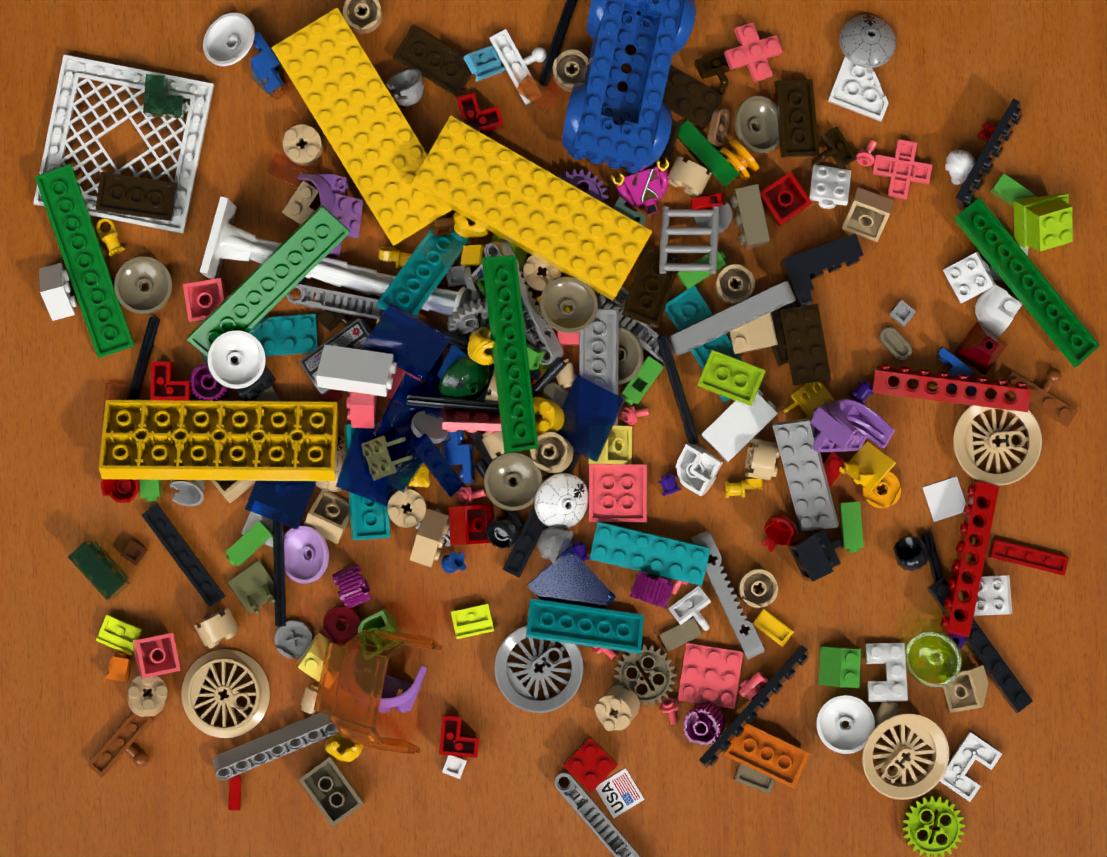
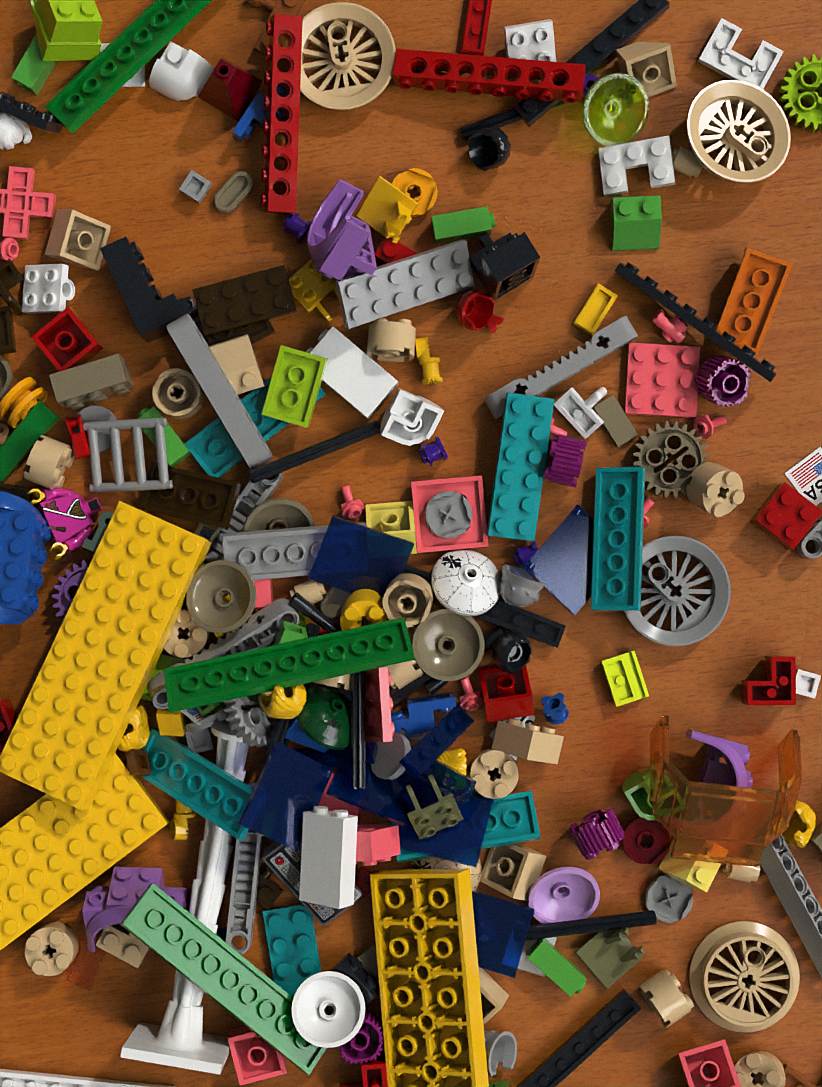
camera: 90 degrees left, 0 degrees up
(617, 492) = (448, 514): none -> light grey tile
(640, 384) = (309, 496): bright green brick -> none
(754, 779) = (782, 316): dark tan tile -> none
(762, 598) = (540, 321): tan brick -> none
(830, 721) = (718, 197): white dish -> none
(944, 498) = (418, 116): white sticker -> none
(969, 277) = (144, 108): white plate -> none

